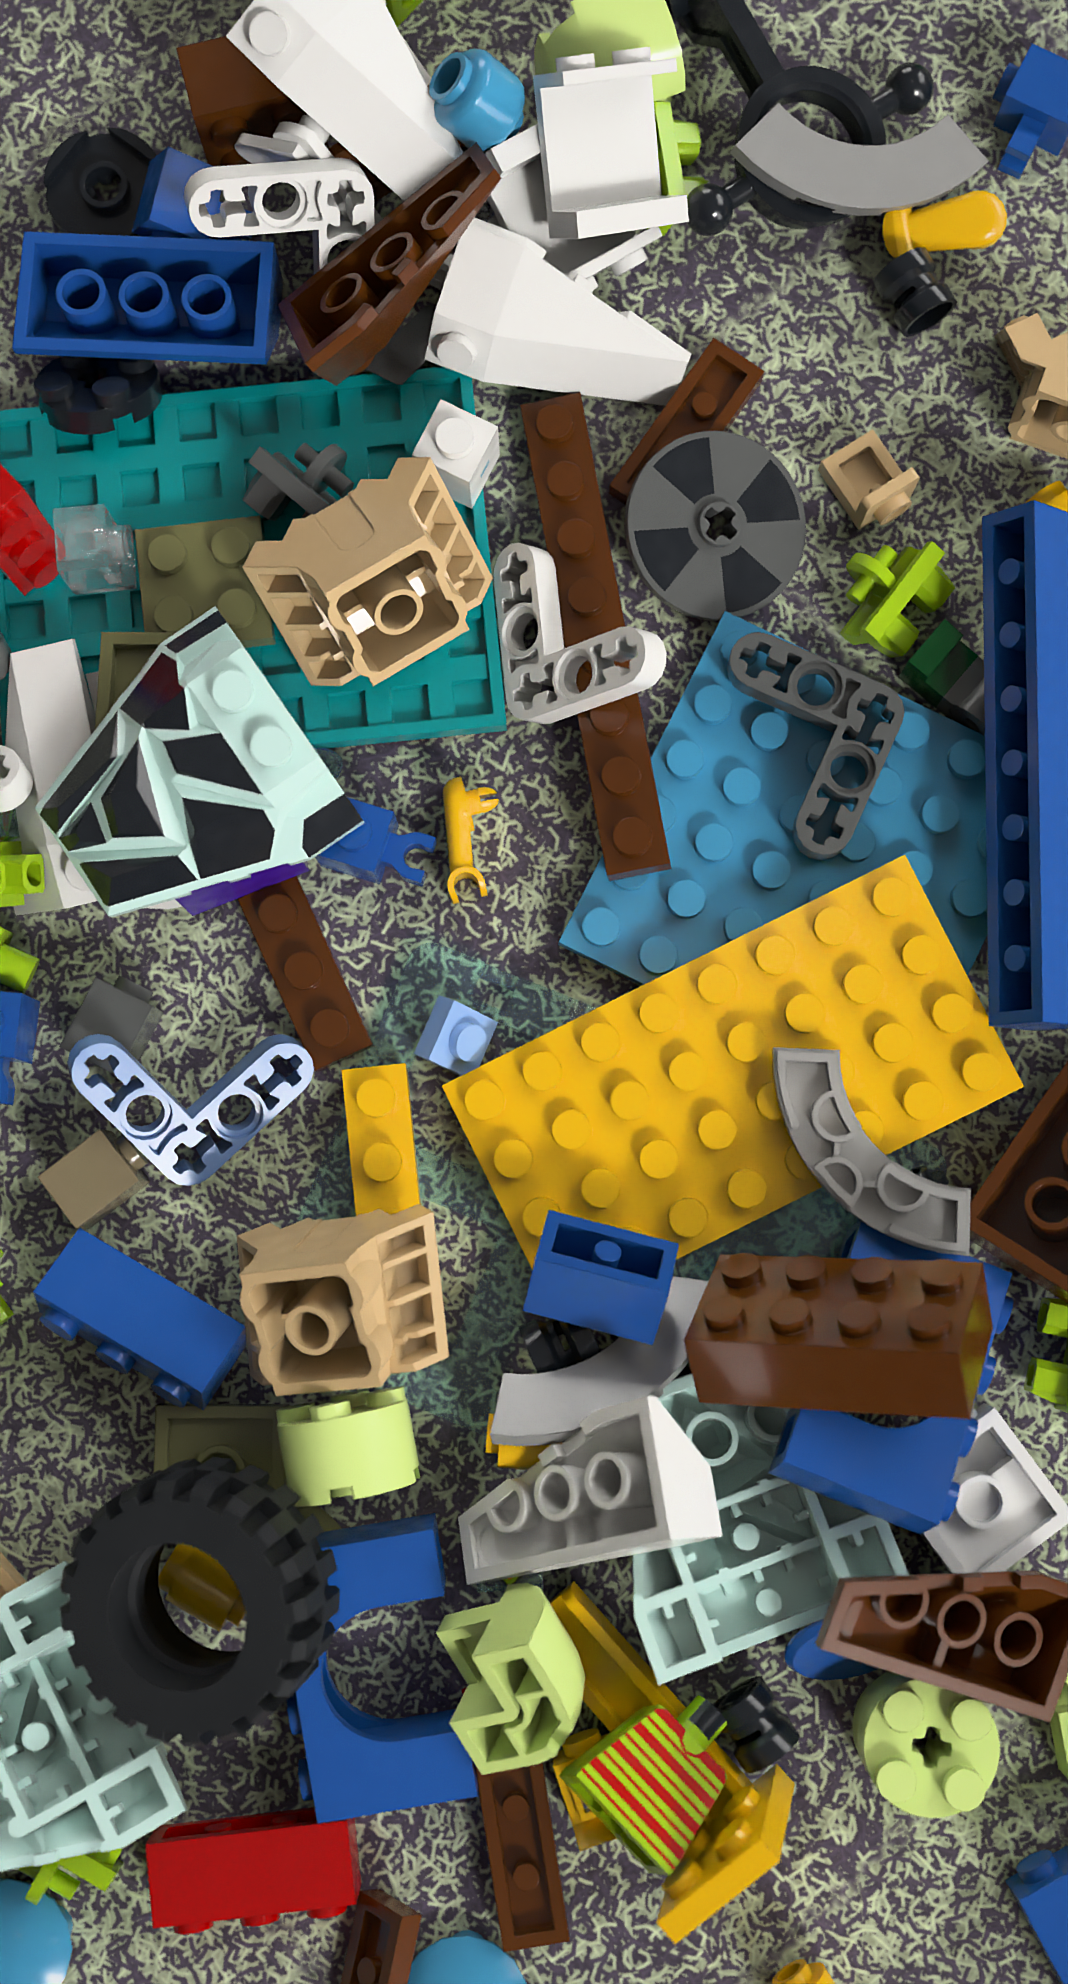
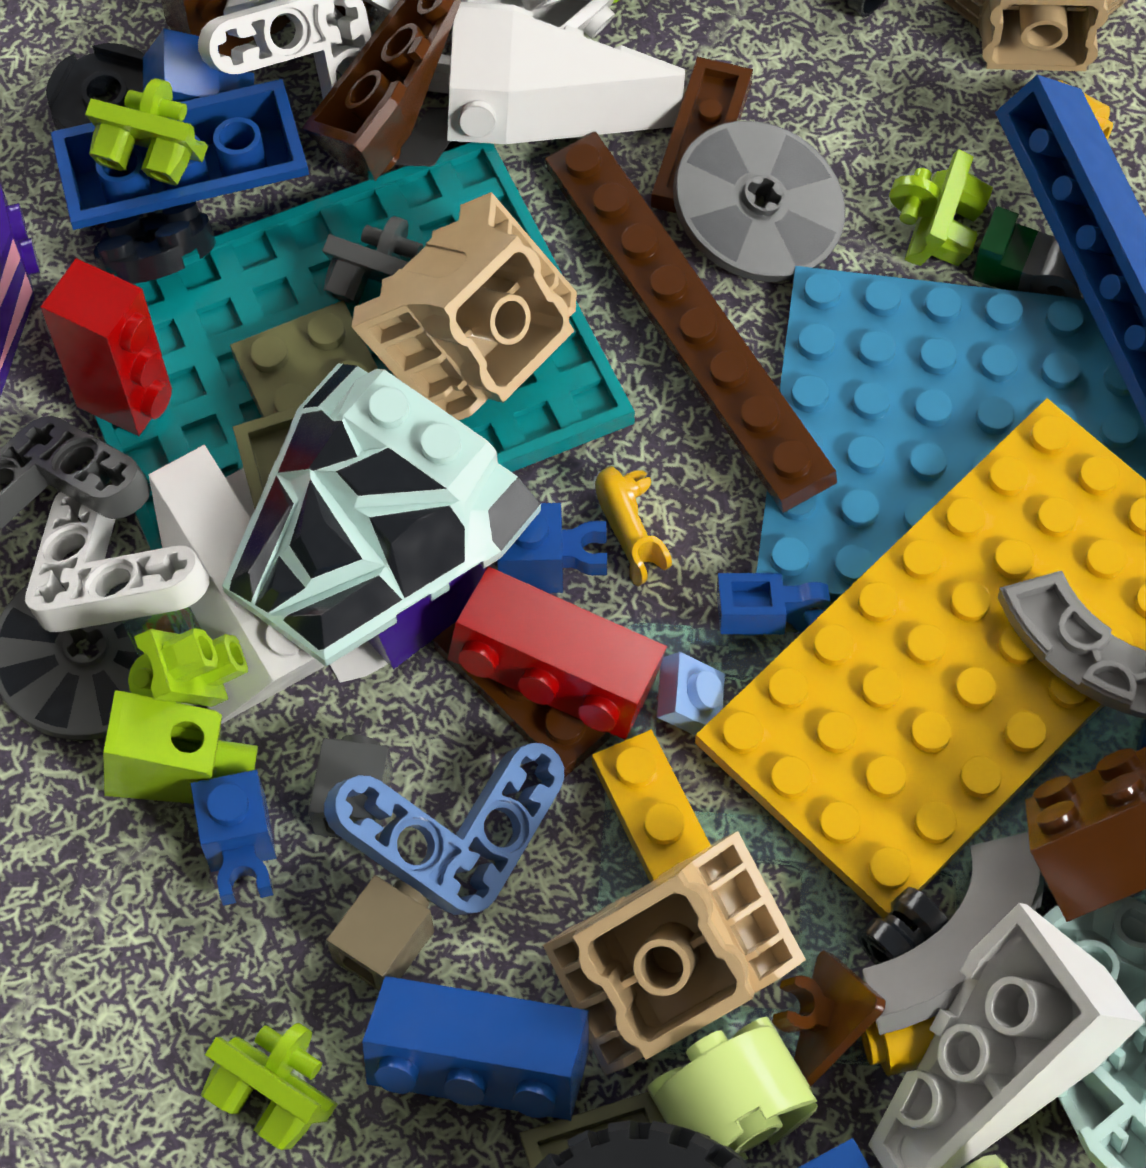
camera: 20 degrees left, 20 degrees down
(82, 263) = (153, 127): none -> lime hips
(93, 550) = (199, 369): clear brick -> none
(335, 965) = (556, 653): none -> brick
(461, 450) = (515, 183): white brick -> none
(466, 1399) = (832, 1014): none -> reddish brown piece
(528, 590) = (666, 343): white beam -> none
(552, 966) = (762, 605): none -> blue plate
(601, 1277) = (924, 839): blue brick -> none
(837, 716) = (936, 312): dark grey beam -> none
(869, 481) = (880, 128): tan bracket -> none

